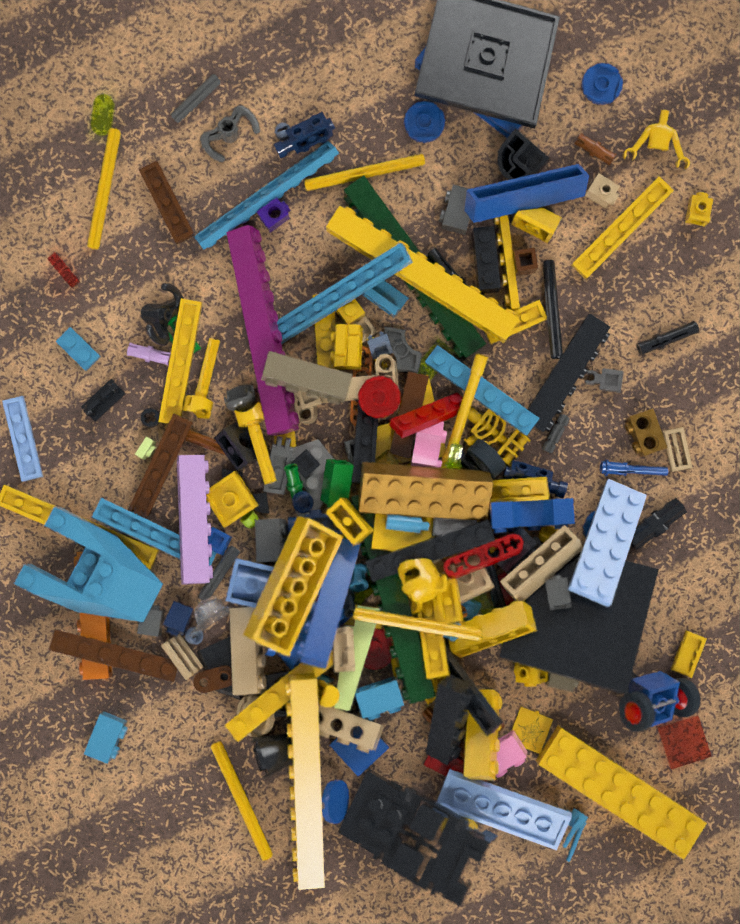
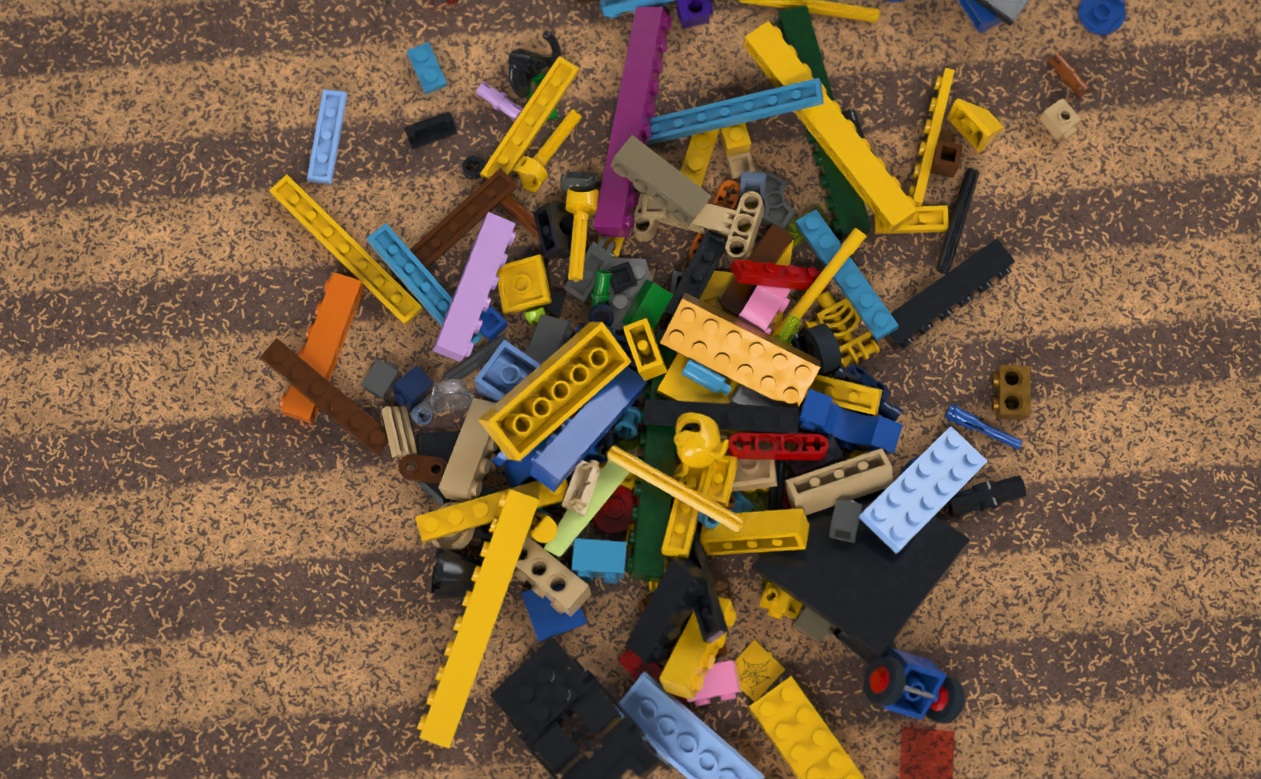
camera: 20 degrees right, 10 degrees down
(105, 579) = (354, 310): dark azure wedge -> none
(105, 737) = (277, 485): dark azure brick -> none
(146, 449) = (454, 196): yellowish green plate -> none
(241, 800) = (396, 613): yellow axle -> none
(335, 801) = (502, 656): blue tile -> none
(347, 347) = (718, 171): yellow brick -> none
(379, 397) = (731, 233): red tile -> none
(386, 298) = (778, 139): dark azure panel -> none
(455, 217) = (895, 79): dark grey brick -> none
(486, 259) = (905, 140): black brick -> none
(520, 157) = (983, 53): black brick -> none
(526, 193) = (975, 85): blue brick -> none
(556, 433) = (910, 355): dark grey axle -> none
(609, 380) = (991, 320): flat silver plate -> none
(622, 228) = (1067, 166): yellow plate -> none
(659, 138) = (1143, 90): yellow piece -> none
(659, 341) = (1071, 301): black pin -> none
(673, 468) = (1030, 428): tan tile -> none
(688, 654) = (969, 656): yellow plate -> none
(694, 214) = (1157, 185): yellow brick -> none

